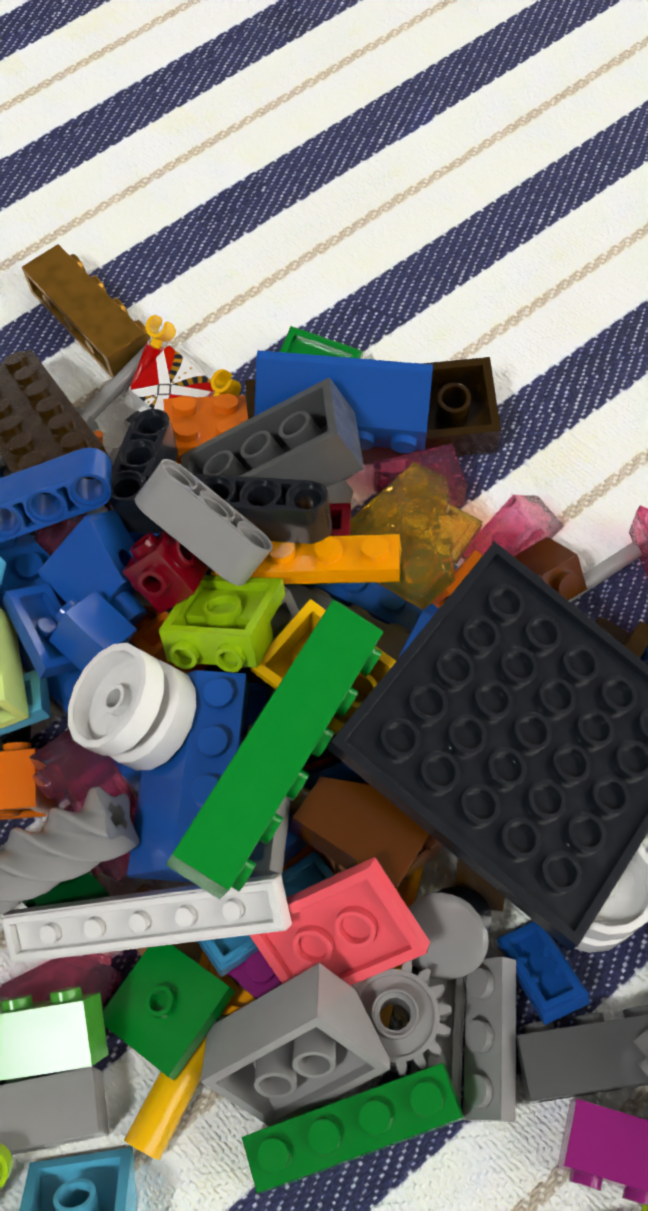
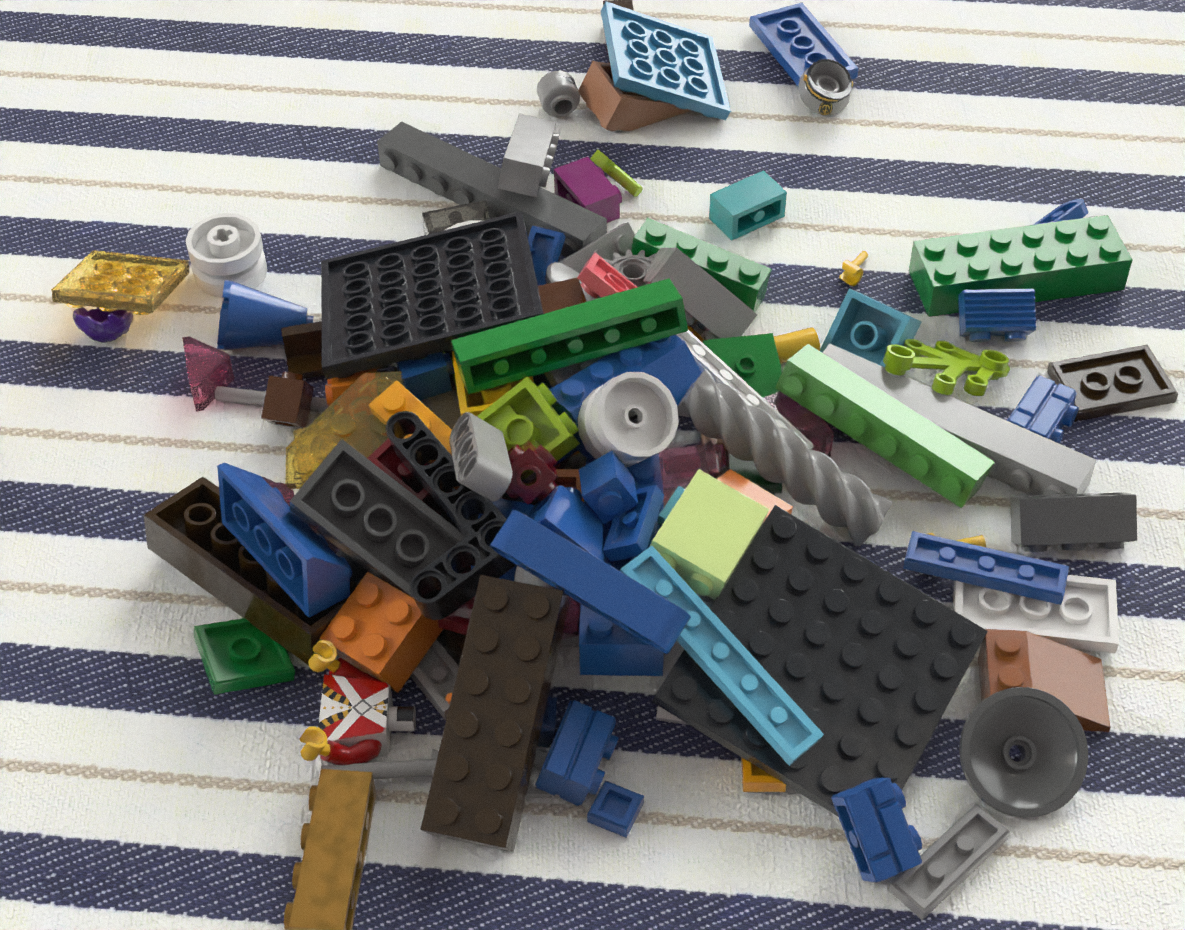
camera: 140 degrees left, 15 degrees down
(517, 526) = (264, 438): clear pink slope -> none

